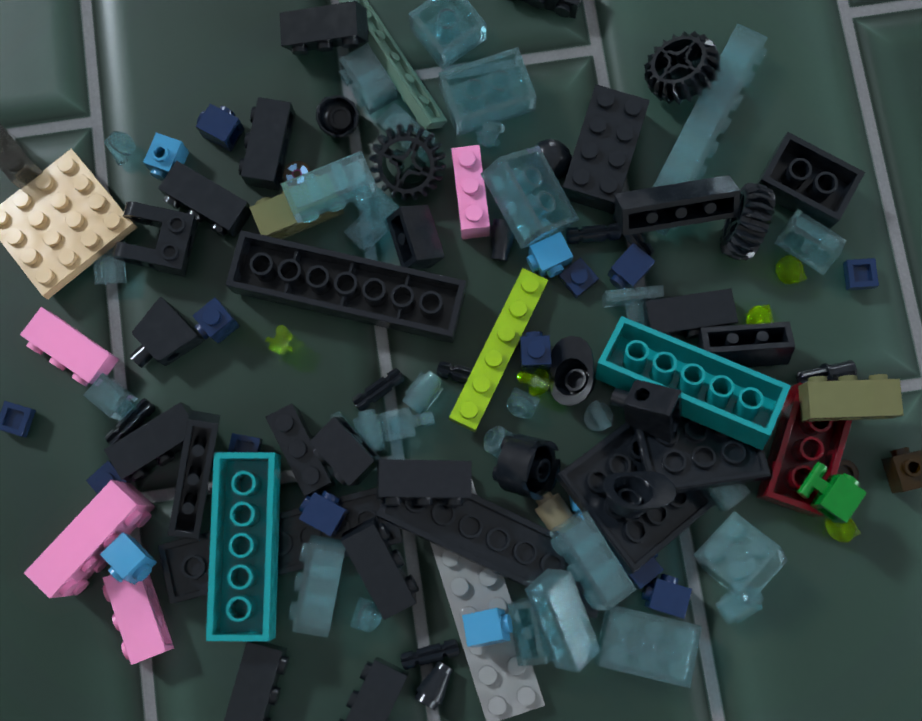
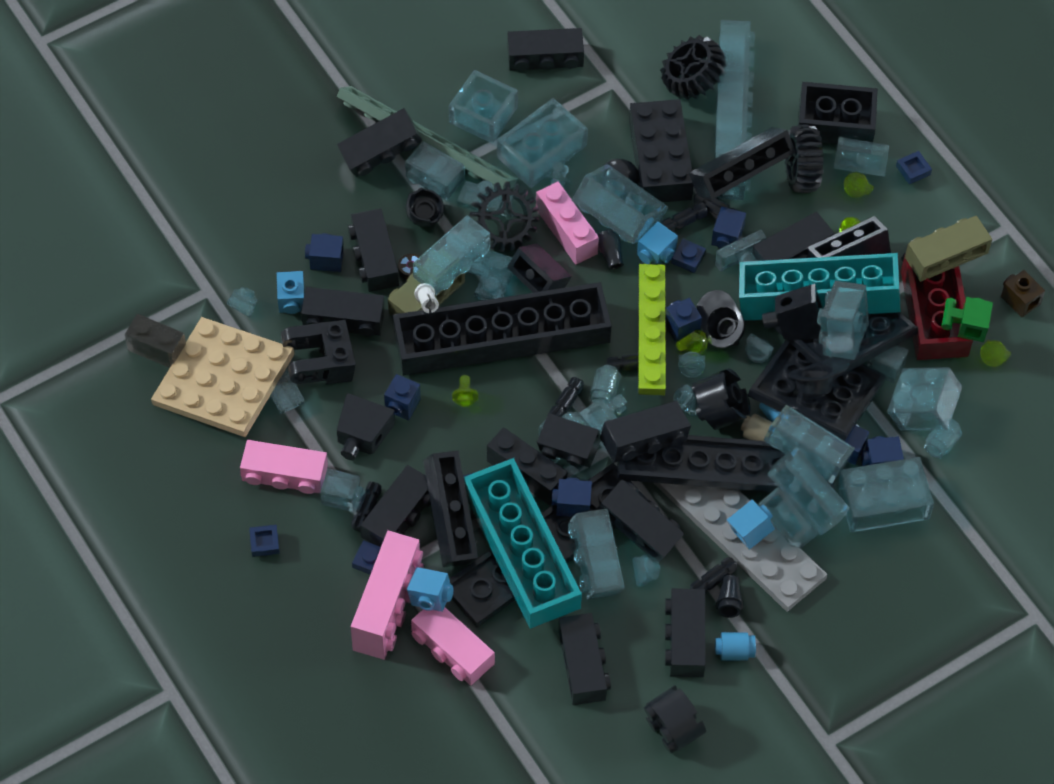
camera: 30 degrees left, 20 degrees down
(282, 221) = (426, 296): none -> white pin
(693, 442) = (843, 320): none -> clear light blue brick

